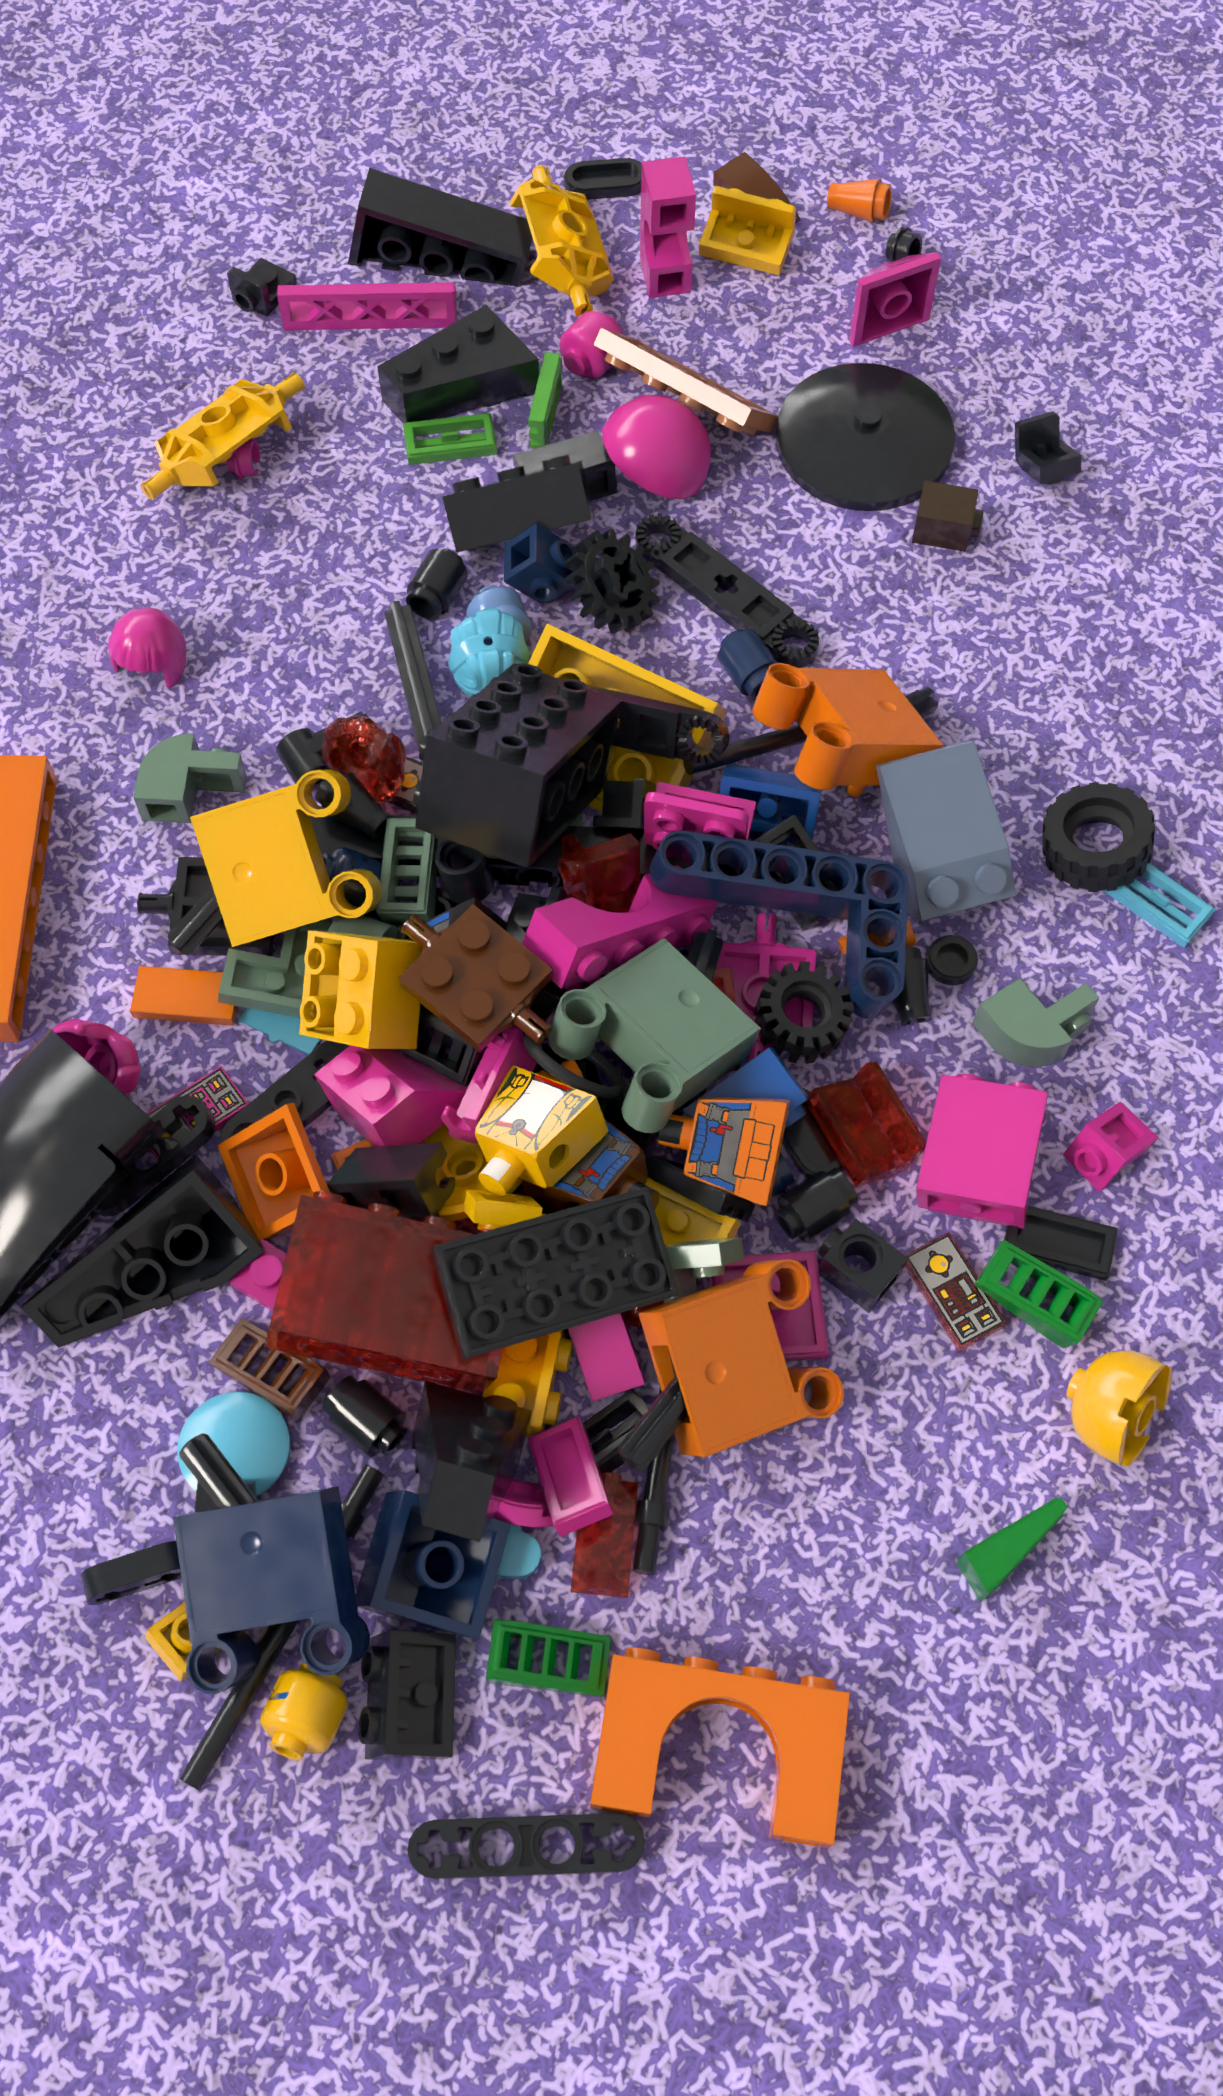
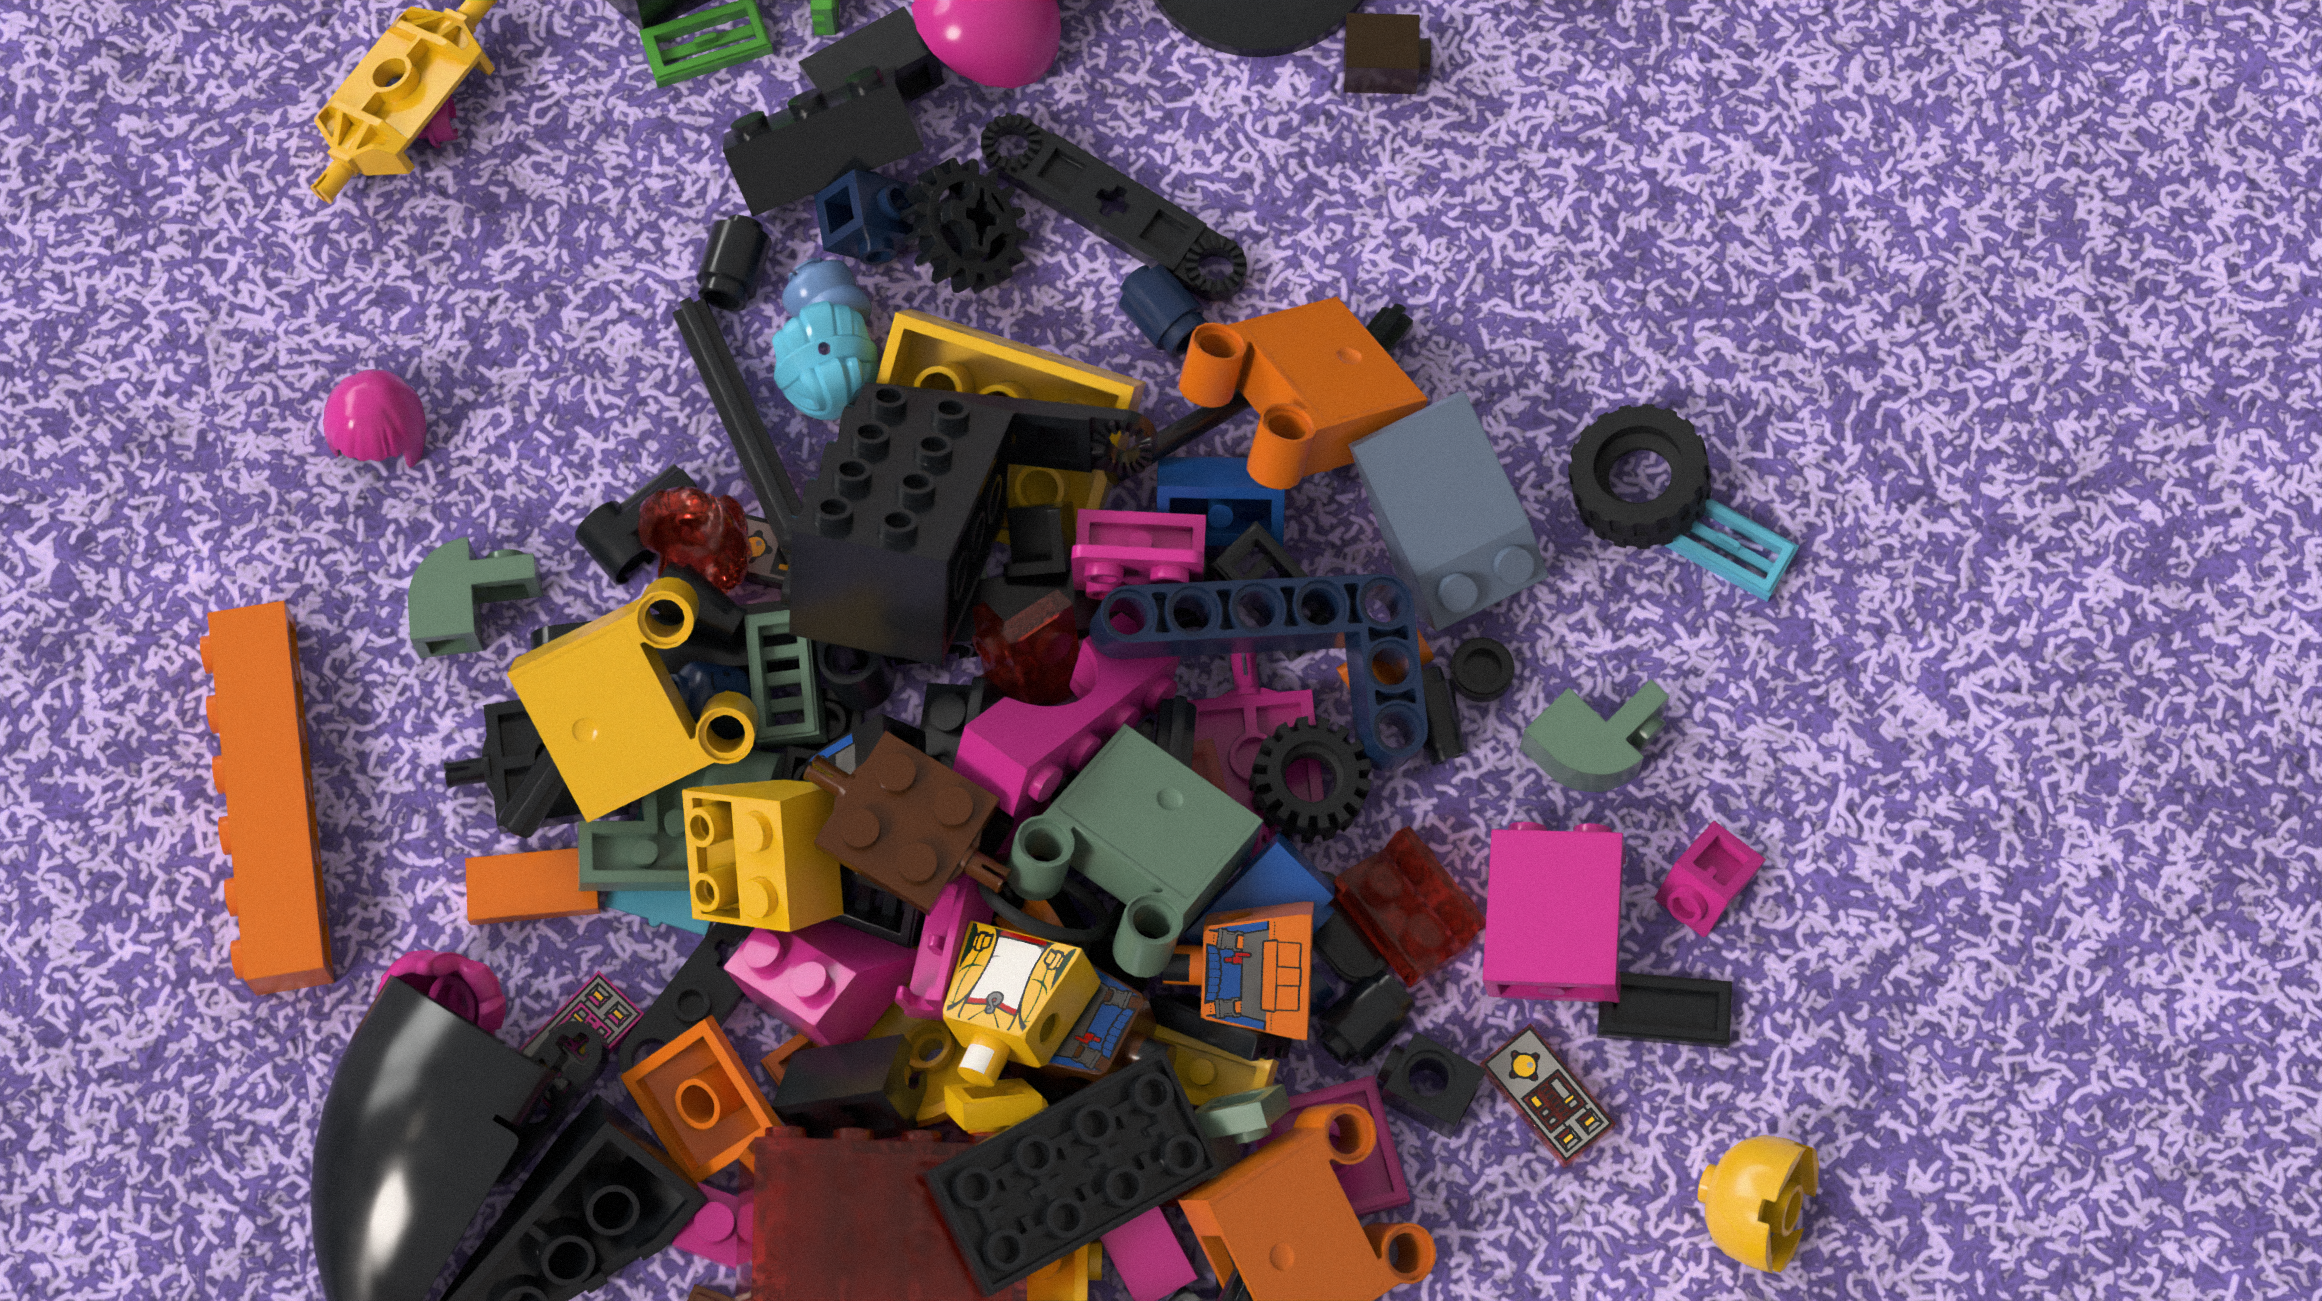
camera: 10 degrees left, 5 degrees up
(1047, 1279) = (1680, 1071): green slope -> none

